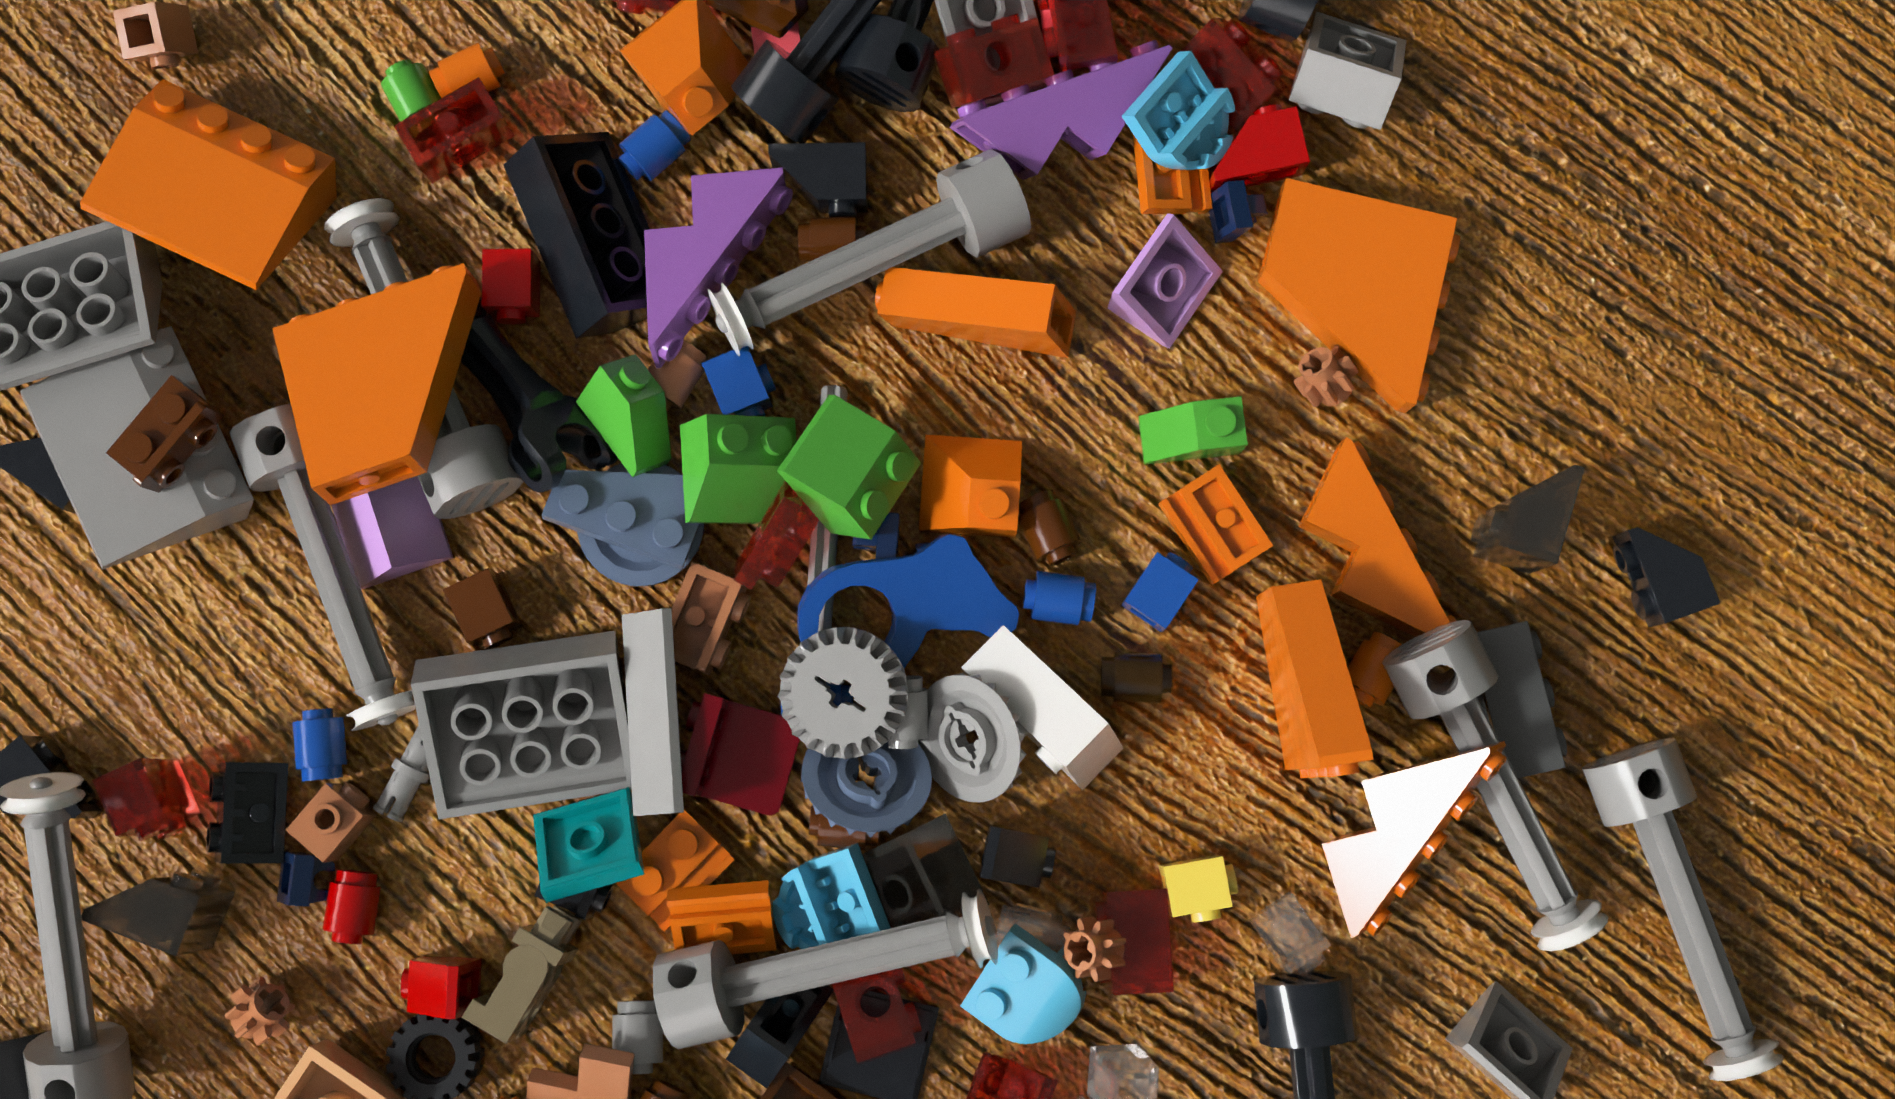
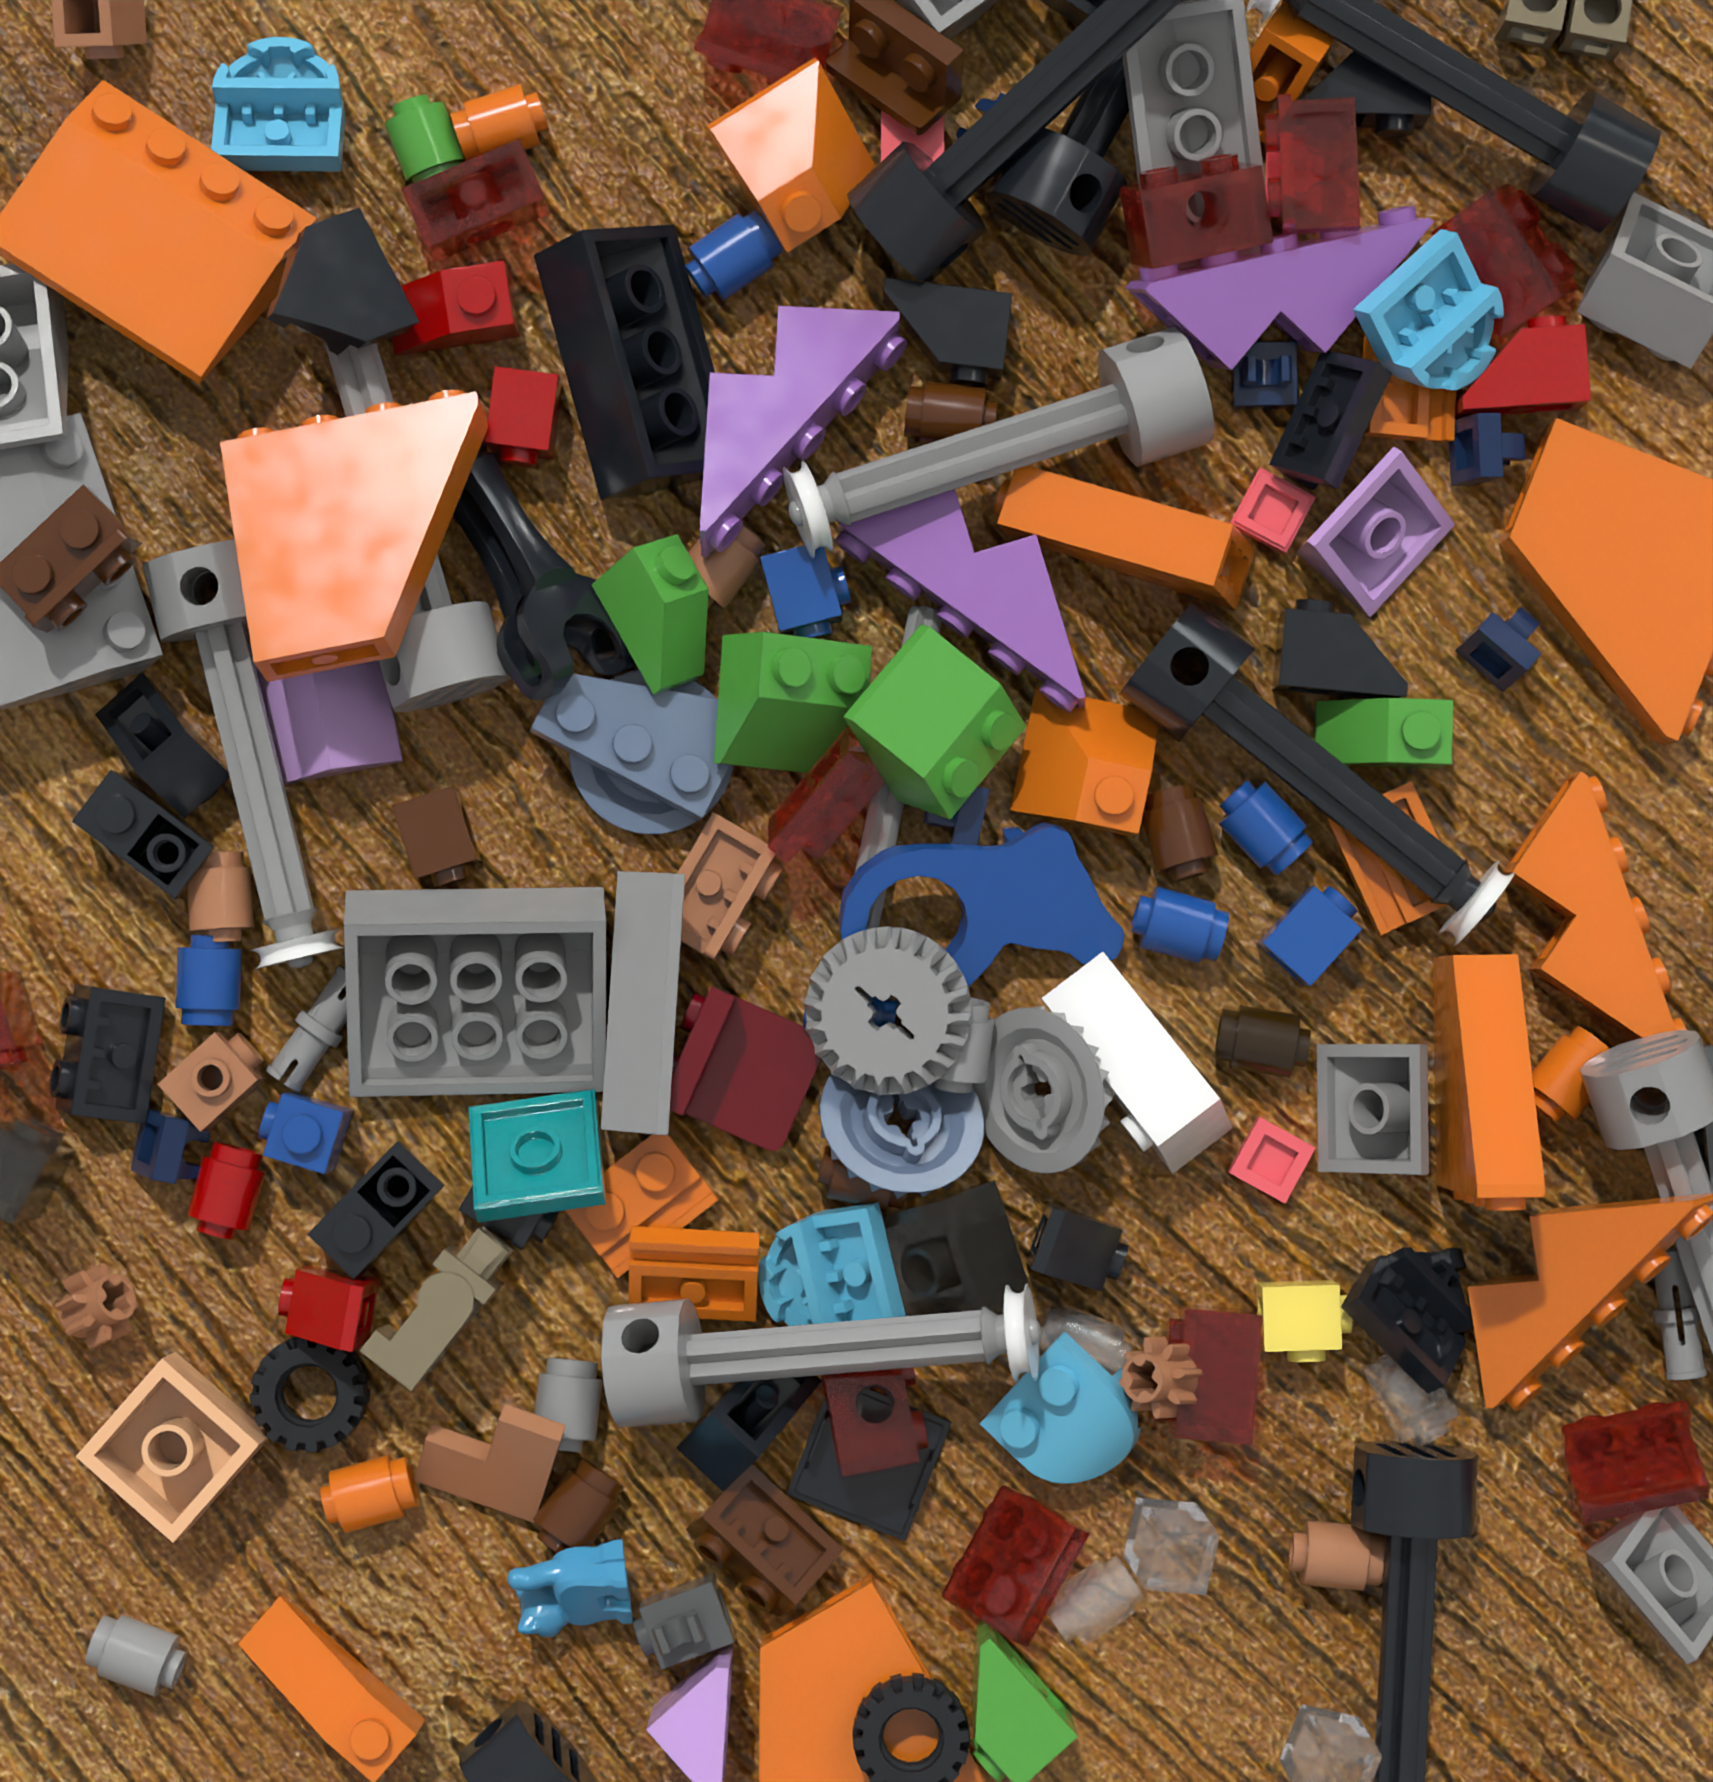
camera: 10 degrees right, 5 degrees up
(254, 636) = (144, 832): none -> black slope
(265, 571) = (163, 746): none -> black slope
(301, 86) = (279, 109): none -> medium azure slope
(321, 678) = (221, 897): none -> nougat brick
(355, 202) = (341, 286): none -> black slope
(407, 851) = (305, 1131): none -> blue brick
(450, 213) = (460, 309): none -> red slope
(468, 906) = (376, 1210): none -> black slope
(877, 366) = (993, 592): none -> medium lavender slope
(1064, 181) = (1266, 377): none -> dark blue tile
(1085, 279) = (1272, 511): none -> coral tile
(1113, 514) = (1264, 826): none -> blue brick
(1117, 203) = (1330, 419): none -> black bracket
(1131, 458) = (1302, 763): none -> black piece
(1143, 379) = (1330, 655): none -> black slope
(1156, 768) = (1271, 1159): none -> coral tile
(1228, 716) = (1373, 1108): none -> light grey slope
(1253, 1070) = (1337, 1556): none -> nougat brick
(1271, 356) = (1501, 648): none -> dark blue tile
(1284, 869) = (1414, 1311): none -> black slope
(1326, 376) = (1567, 686): nougat gear -> none
(1470, 963) = (1632, 1461): none -> clear red bracket
(1495, 876) = (1685, 1357): none -> light grey pin

